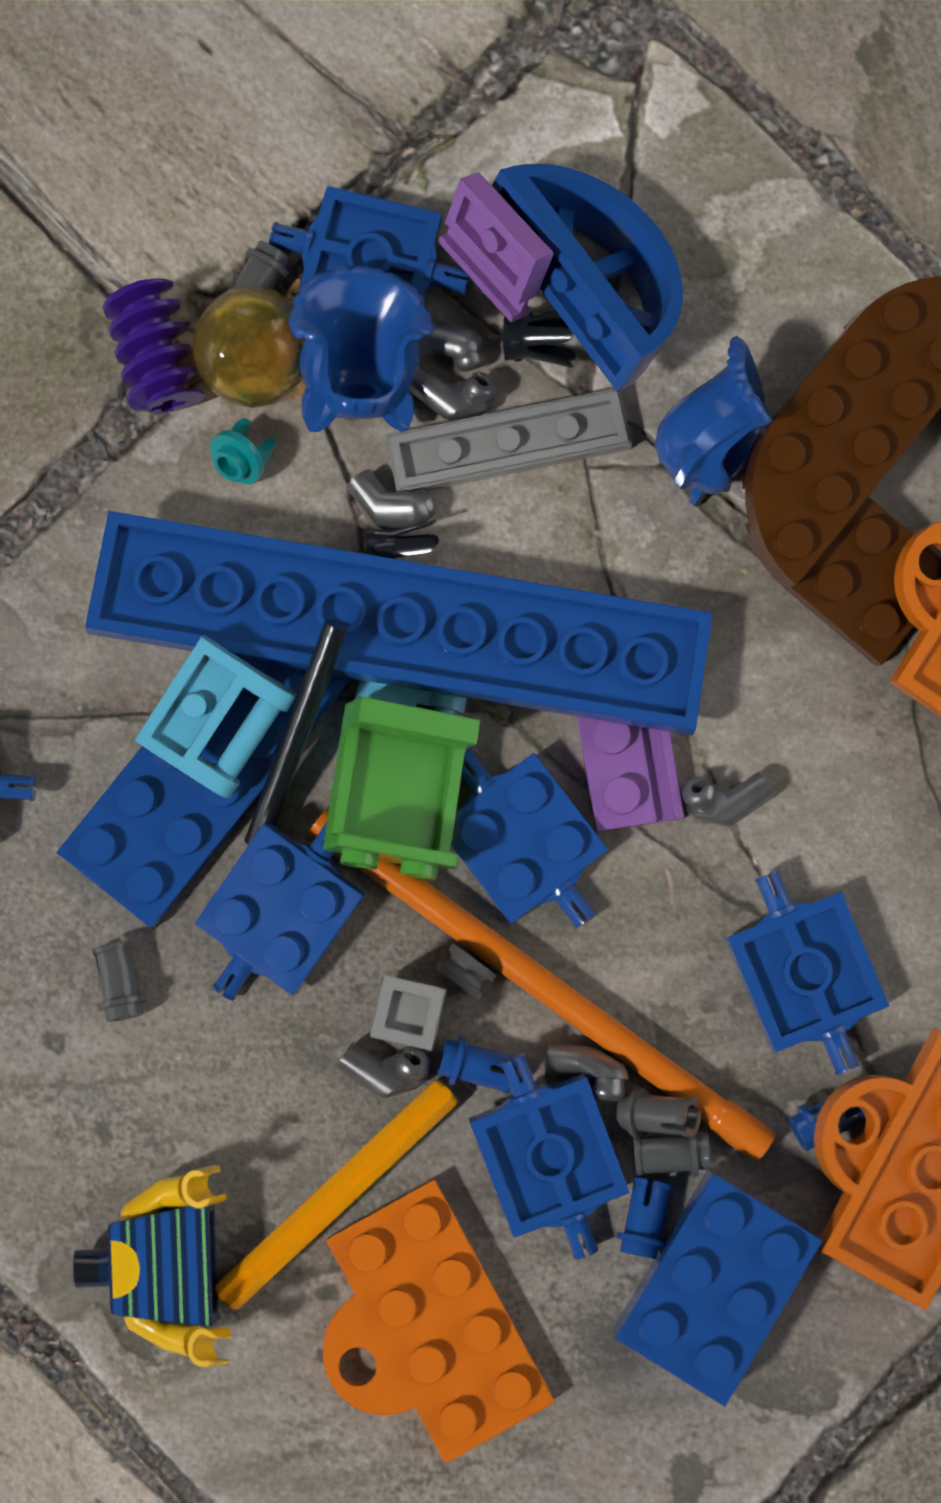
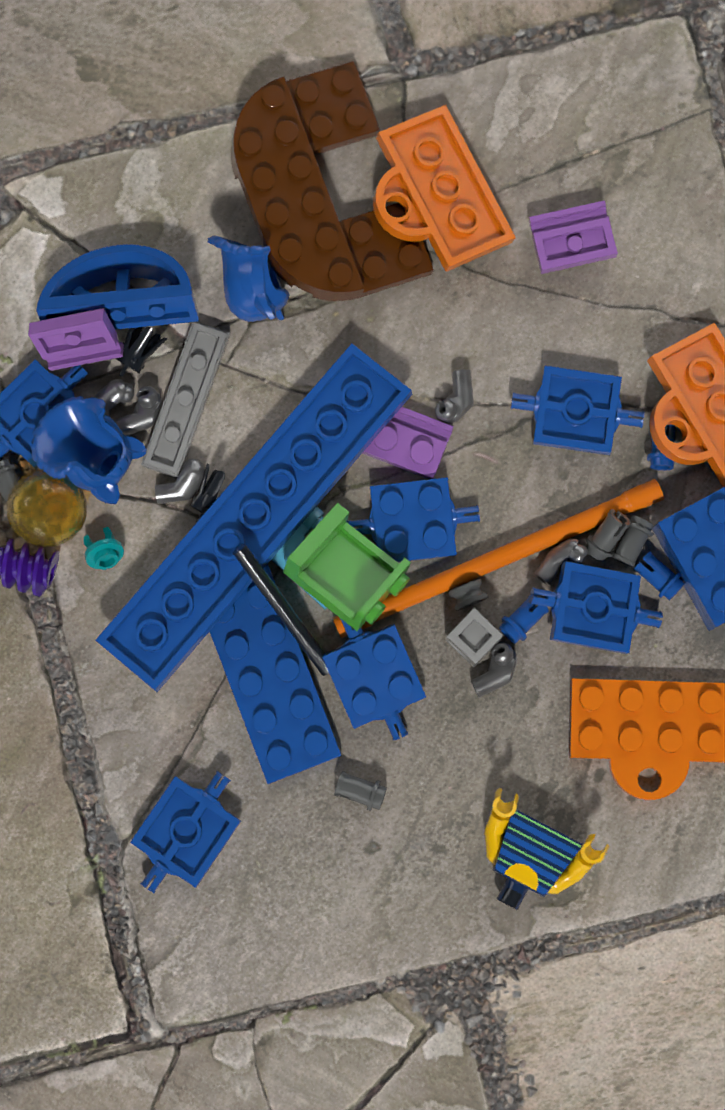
camera: 60 degrees left, 0 degrees up
(198, 704) = (236, 653): medium azure plate -> none
(335, 1195) = (549, 738): light orange axle -> none

